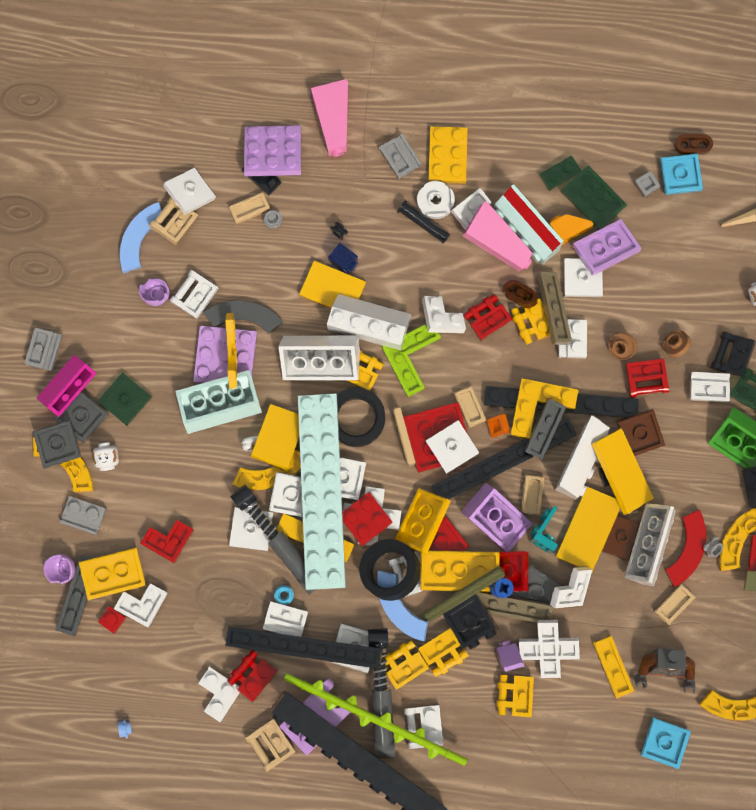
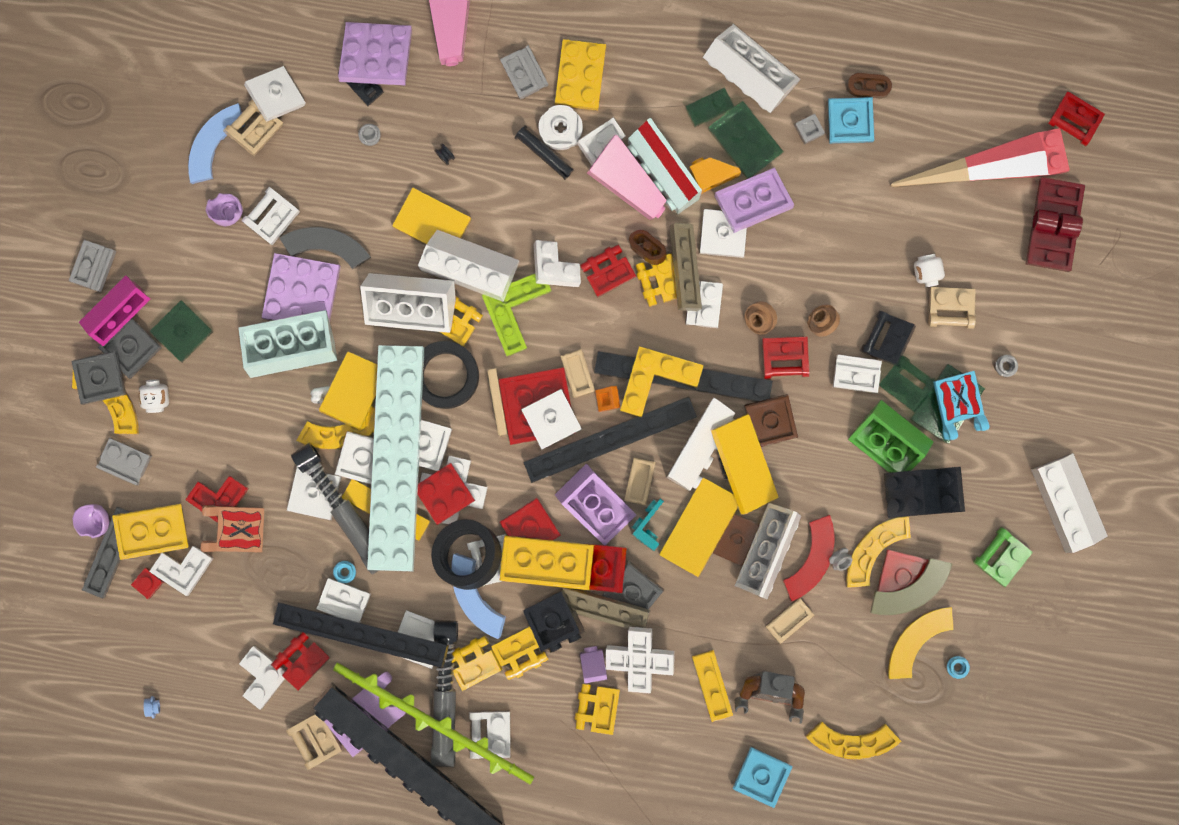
camera: 10 degrees right, 5 degrees up
(188, 565) = (238, 529): none -> flag
(232, 350) = (307, 286): yellow tile -> none
(249, 208) = (343, 119): tan tile -> none
(343, 259) = (447, 188): clear blue brick -> none
(422, 520) = (509, 501): yellow tile -> none
(463, 594) = (547, 590): olive axle -> none
(497, 588) = (588, 583): blue wheel -> none
(544, 428) = (659, 407): dark grey plate -> none
(574, 593) = (676, 598): white plate -> none
(592, 137) = (751, 68): none -> white slope

